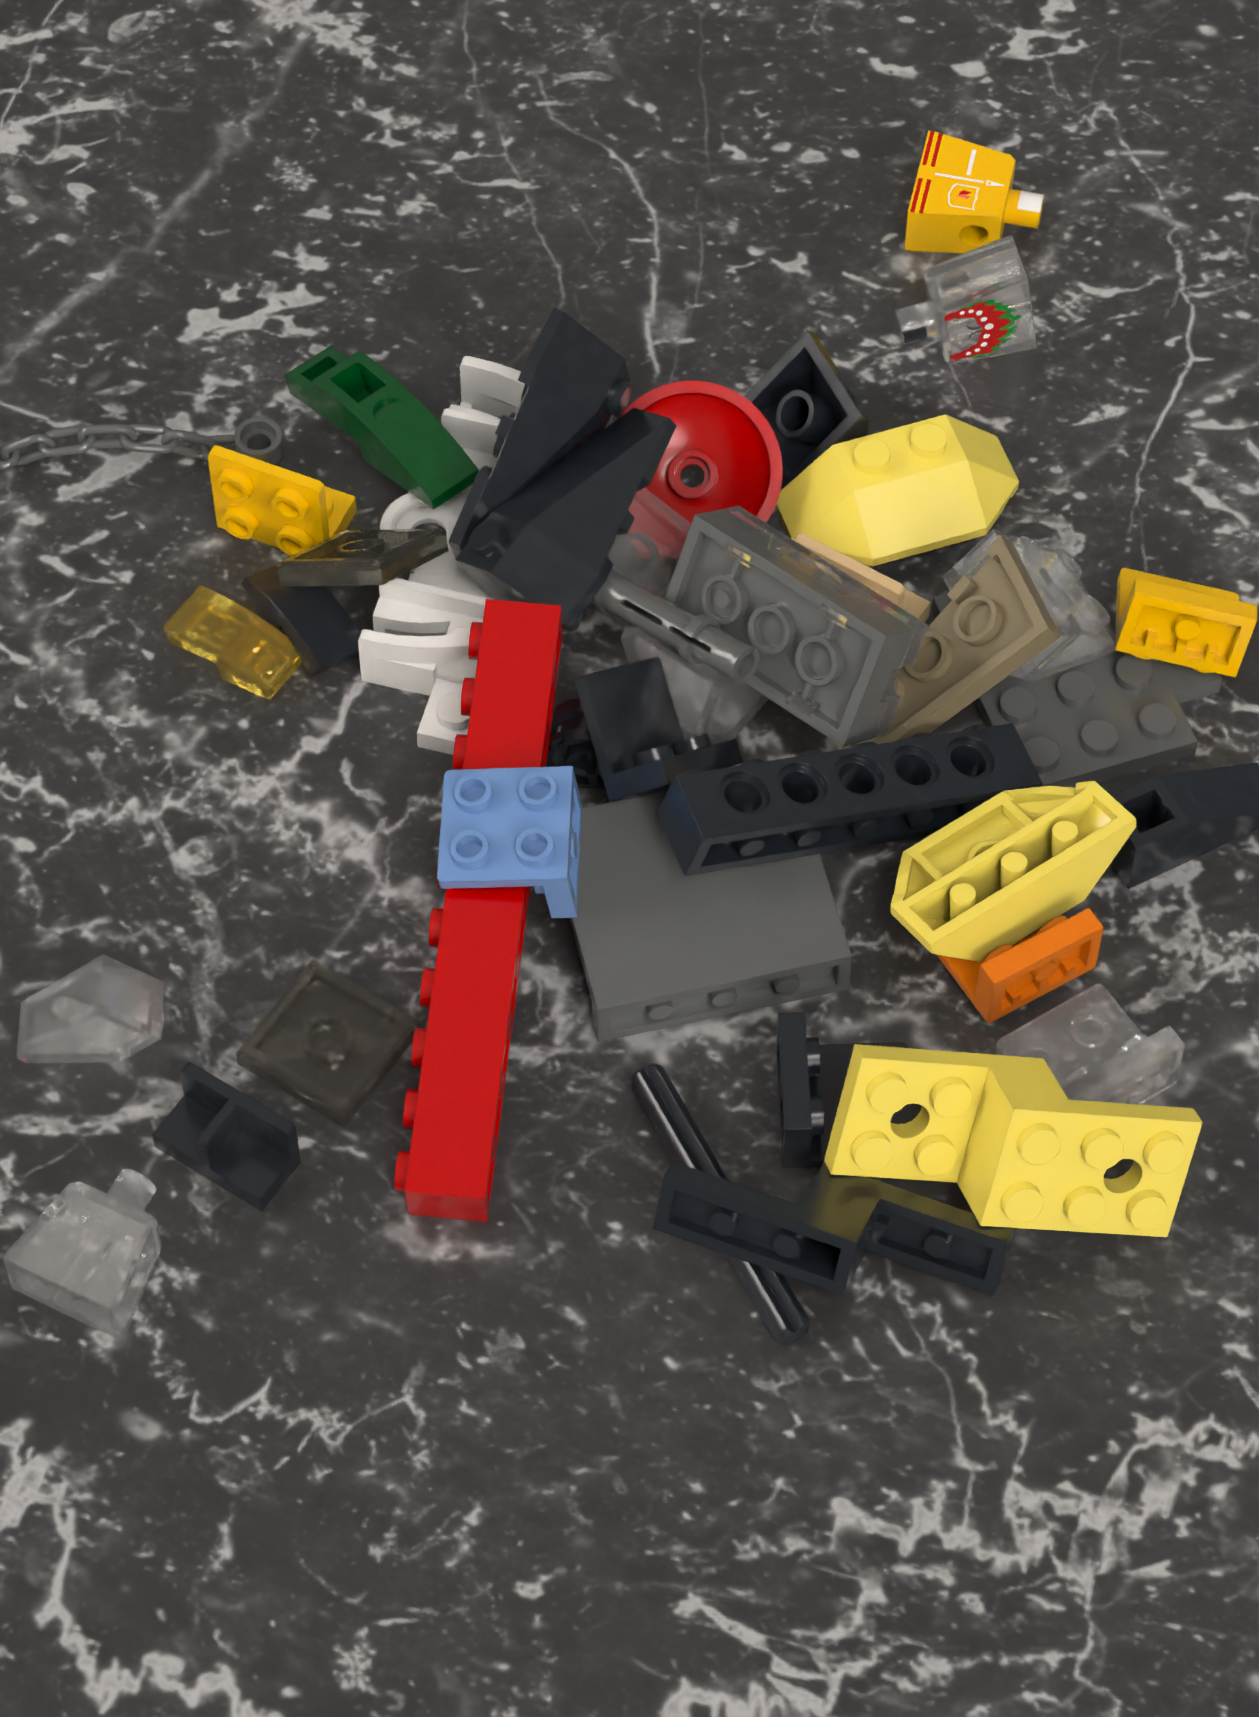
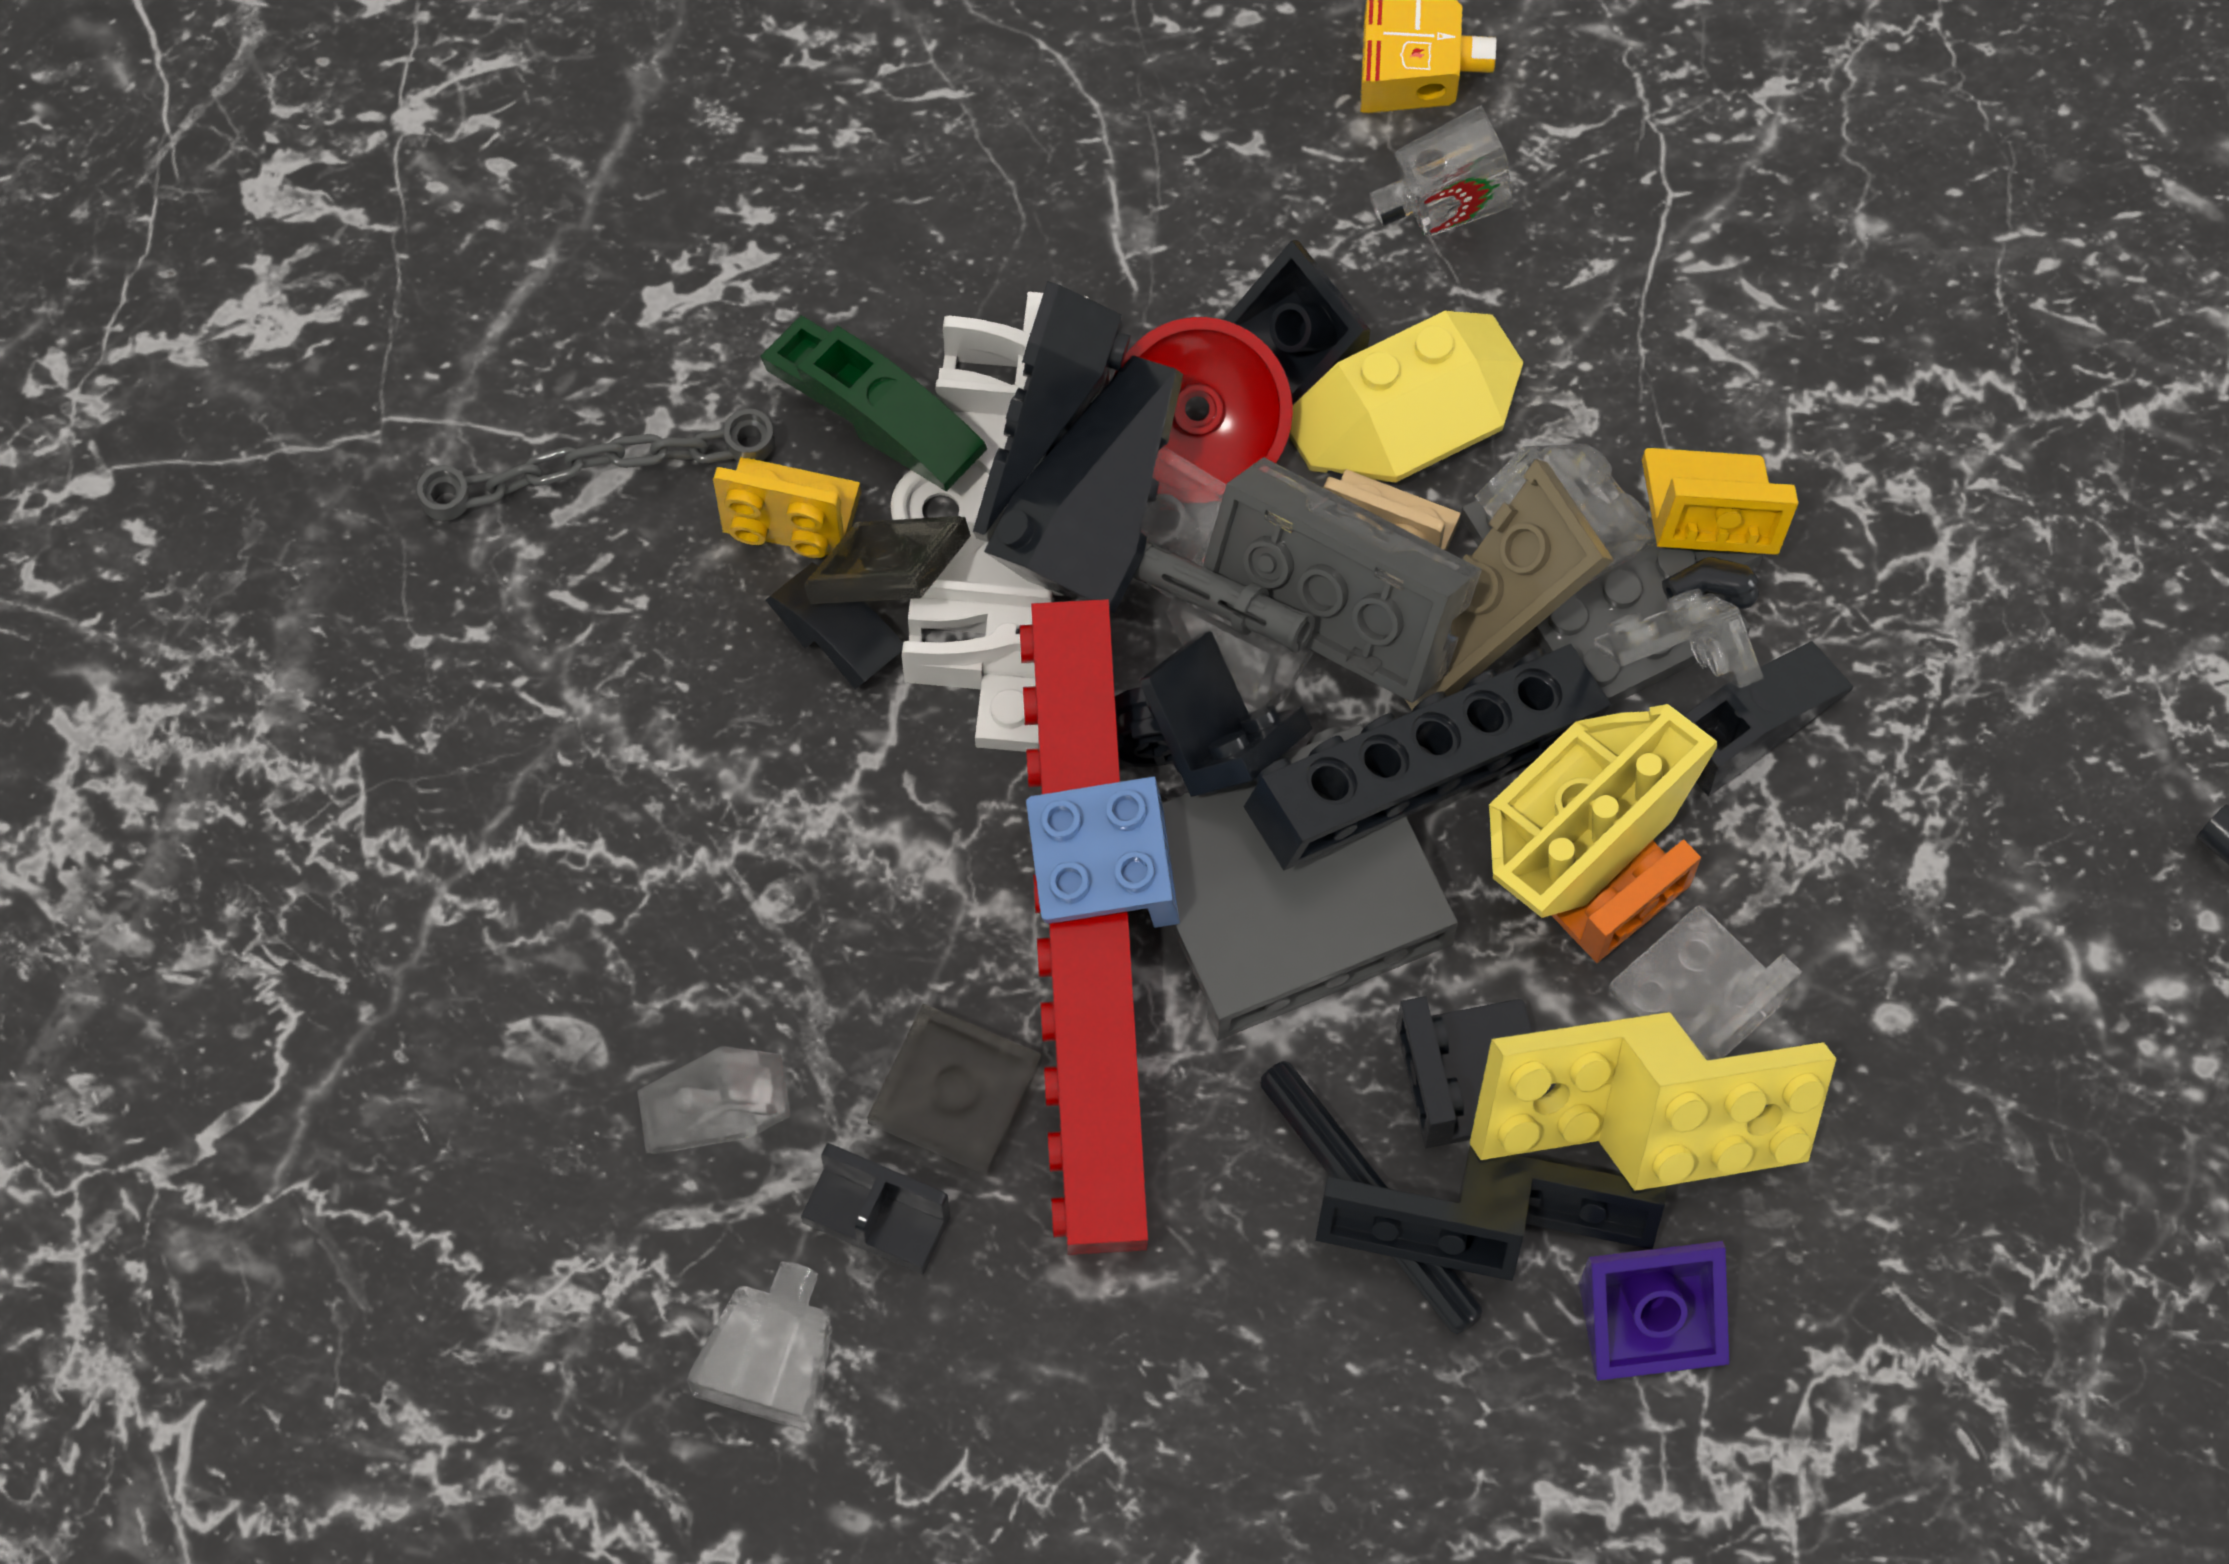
camera: 10 degrees left, 10 degrees up
(237, 640) = (771, 662): clear yellow slope -> none
(985, 1344) = (1656, 1310): none -> dark purple slope
(1156, 741) = (1705, 620): none -> clear bracket
(1168, 684) = (1716, 576): none -> black arm

